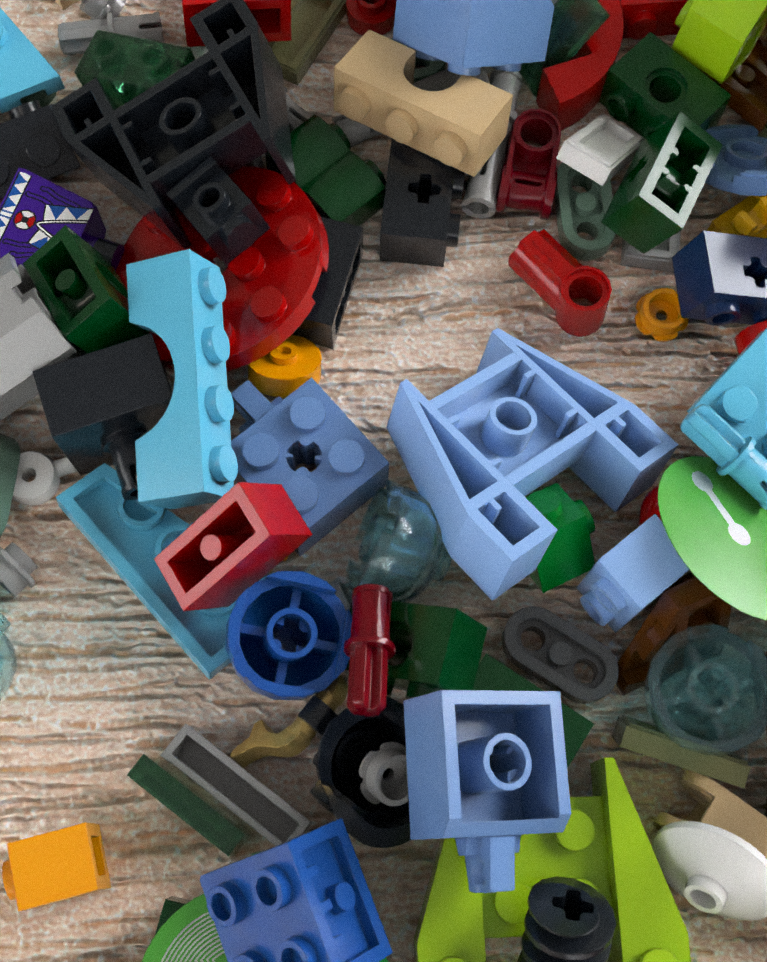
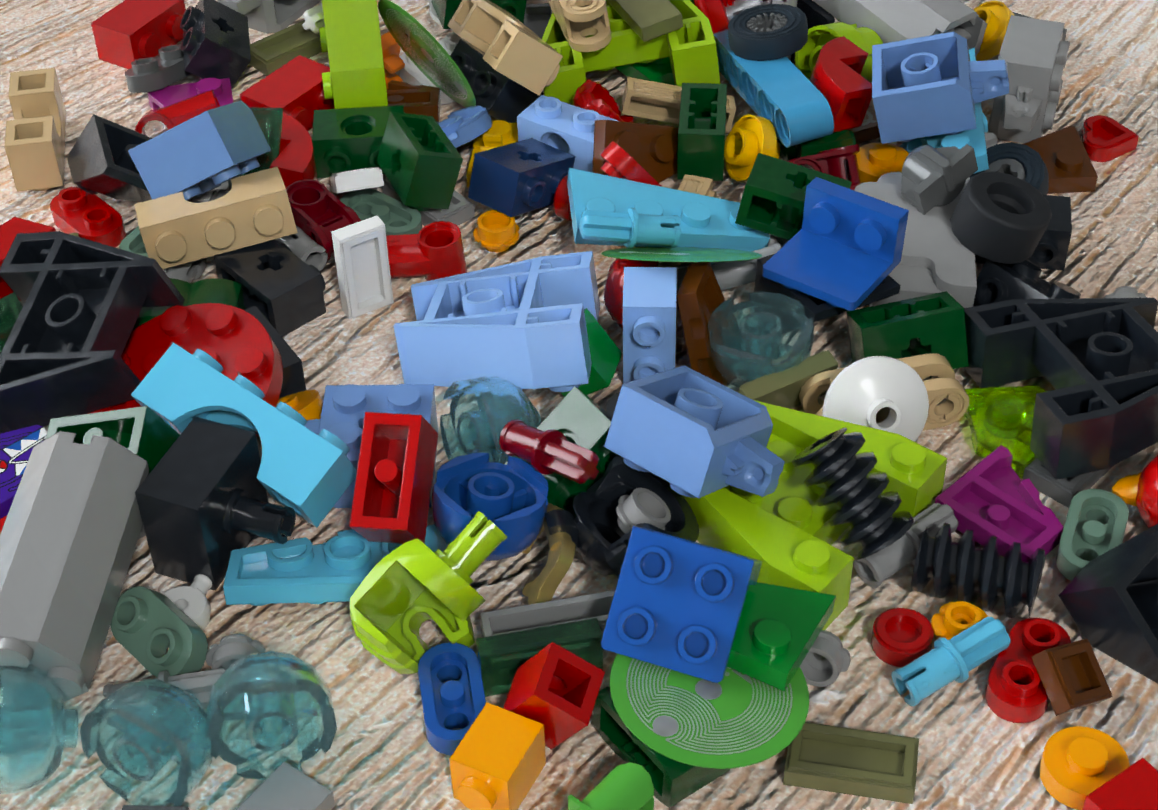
camera: 45 degrees left, 30 degrees down
(99, 767) = (453, 702): none -> blue plate
(141, 864) = (555, 691): none -> red brick
(142, 673) = (421, 586): none -> lime piece
(218, 210) = (147, 335): black brick -> none
(486, 264) = (363, 267): none -> white tile

